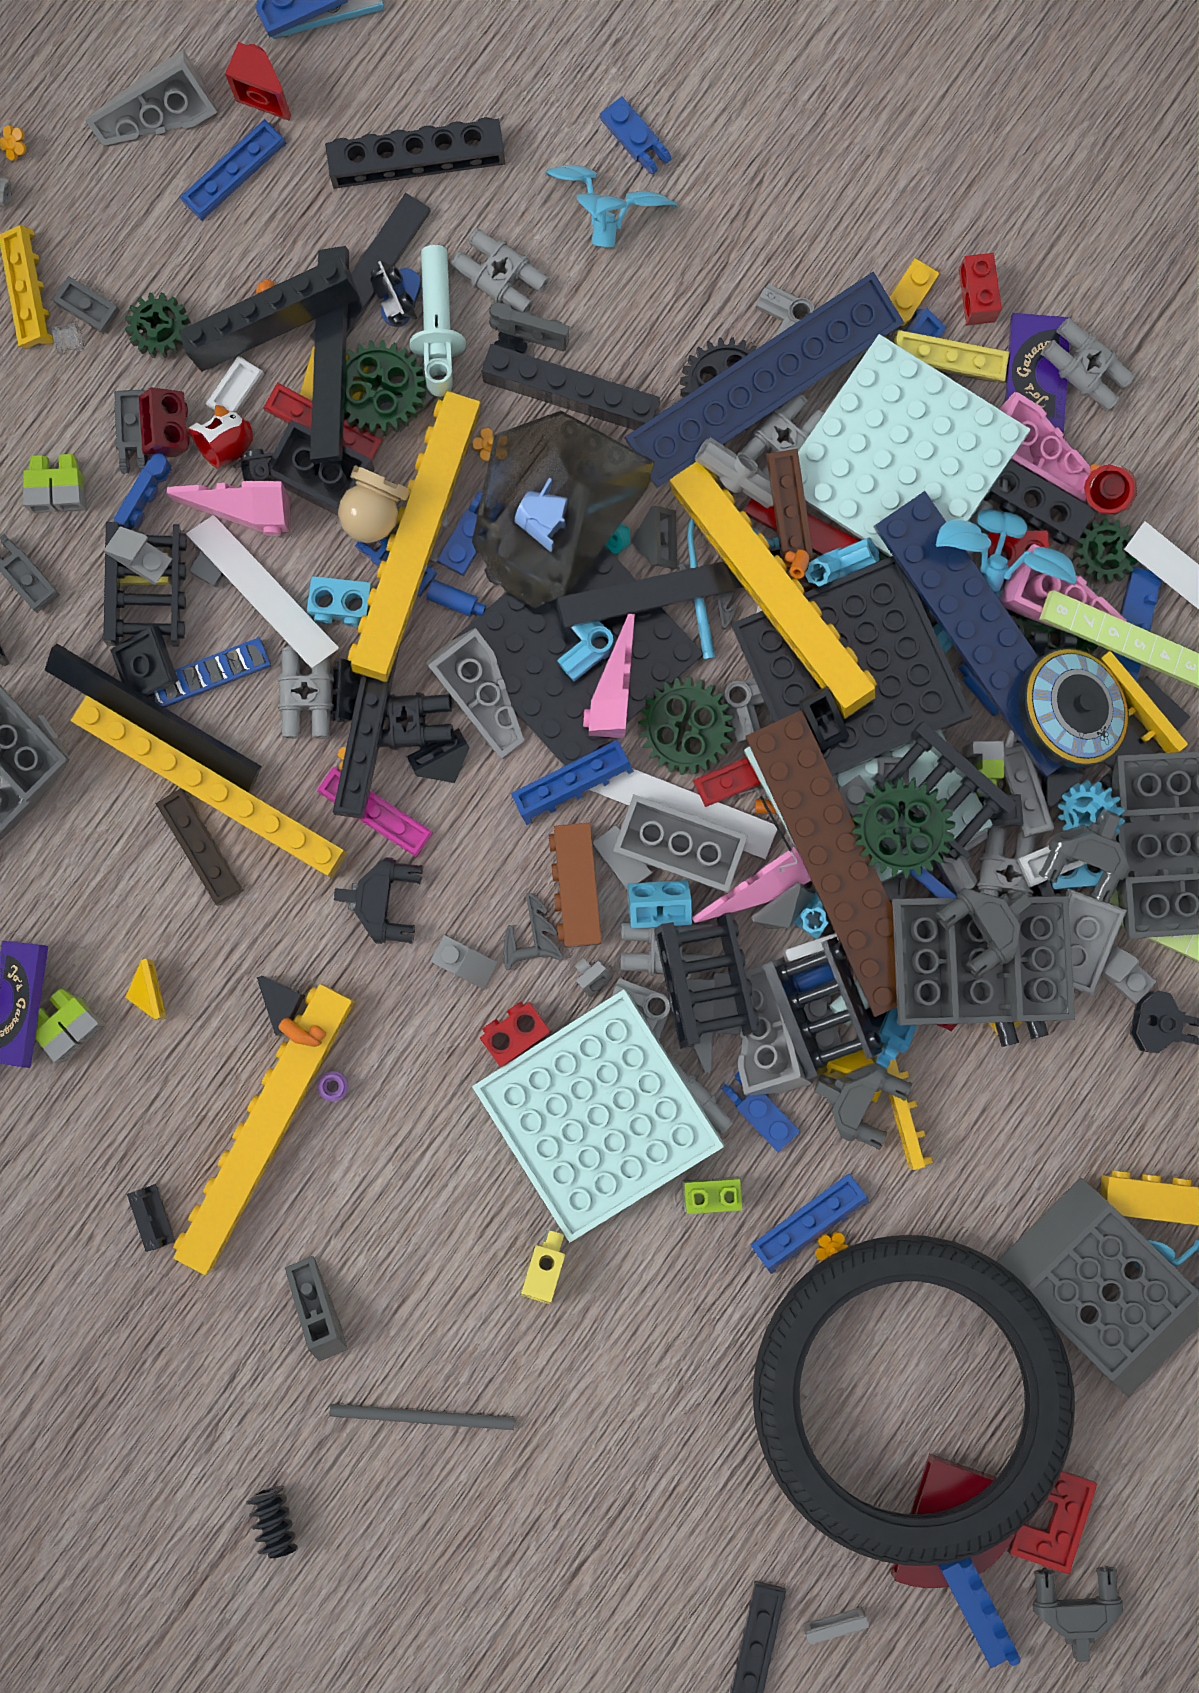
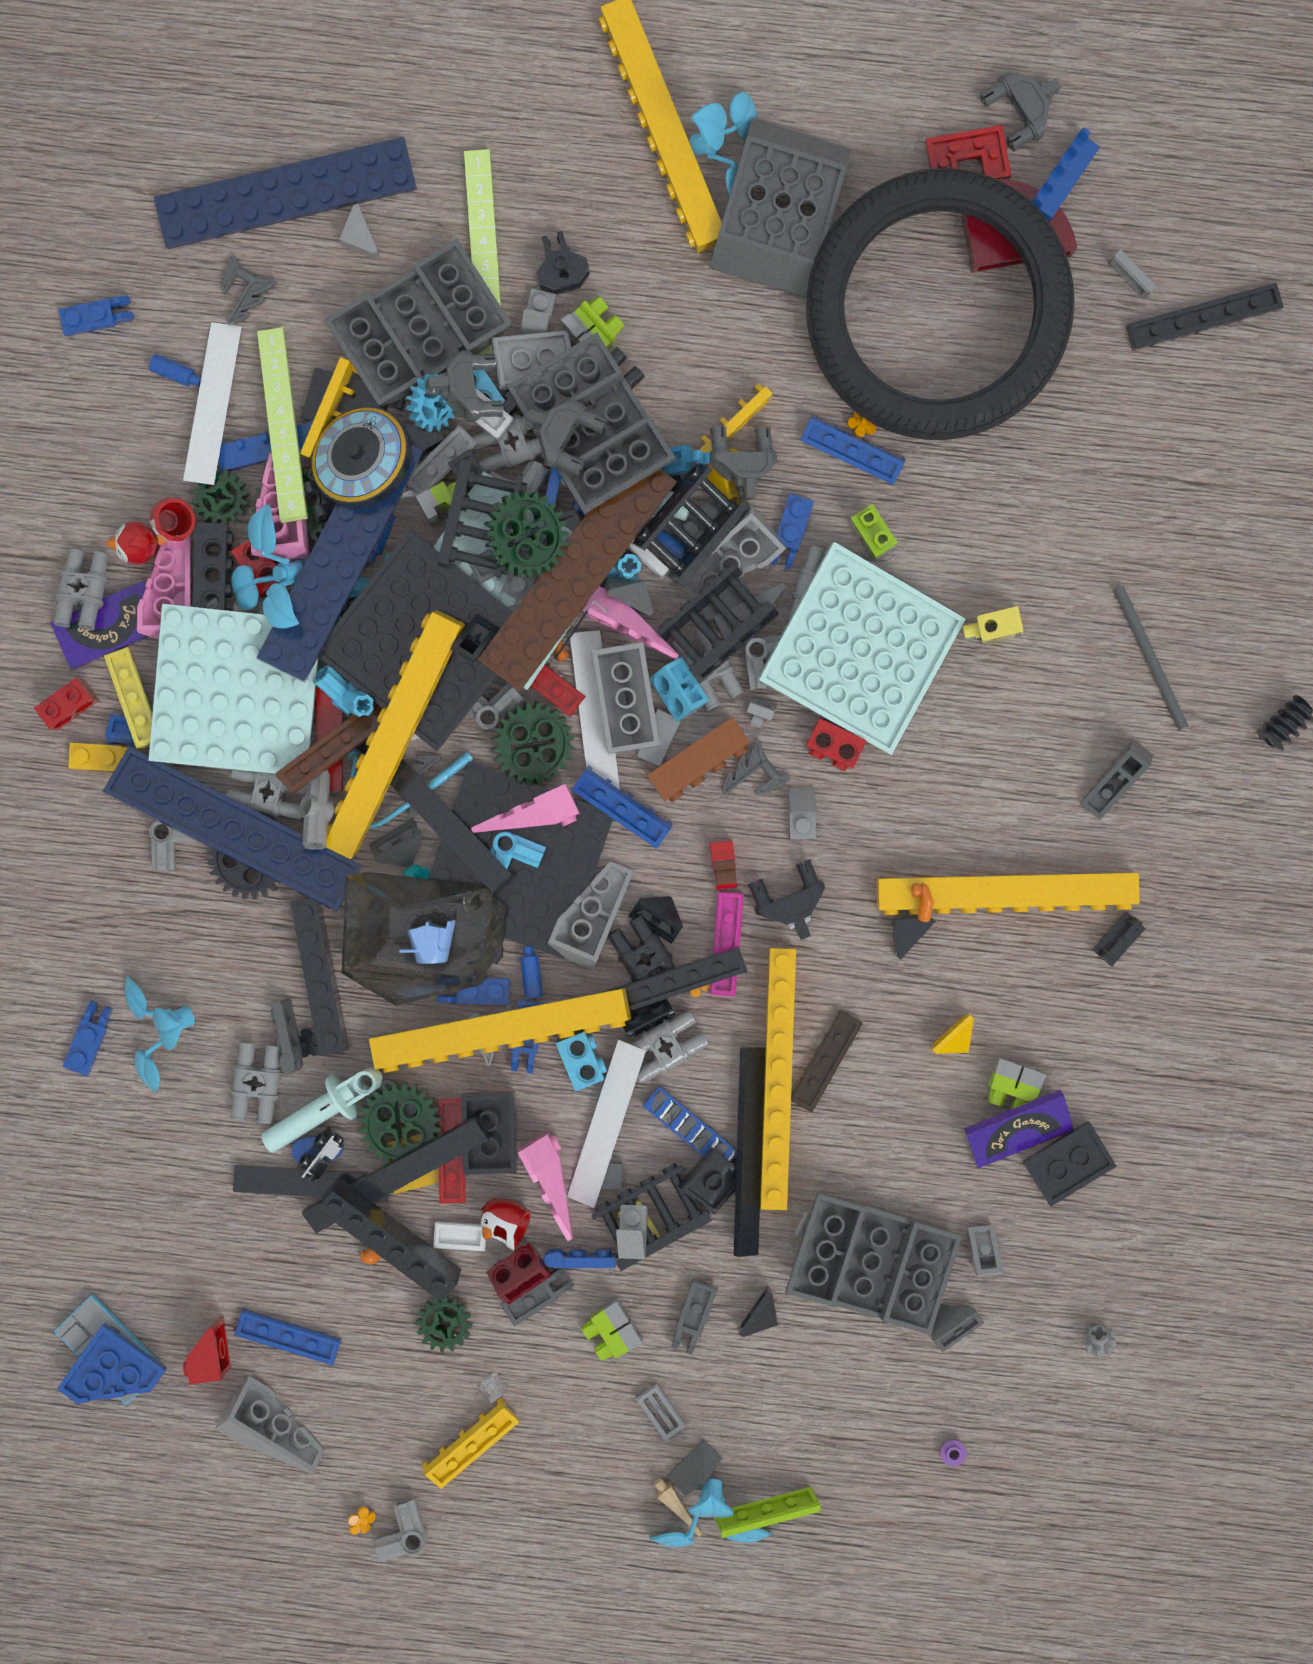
camera: 120 degrees left, 5 degrees up
(86, 305) = (458, 1388): dark grey plate -> none
(254, 465) = (515, 1182): black hinge -> none
(323, 1088) = (955, 855): medium lavender plate -> none
(370, 508) = (501, 1074): tan tile -> none
(407, 165) = (211, 1205): black brick -> none
(456, 852) = (723, 864): none -> leg
(484, 444) = (396, 1016): light orange plant -> none
(798, 562) = (362, 724): orange arm -> none
(1091, 1018) = (587, 321): none -> lime hips
(1106, 440) = (134, 543): none -> red piece

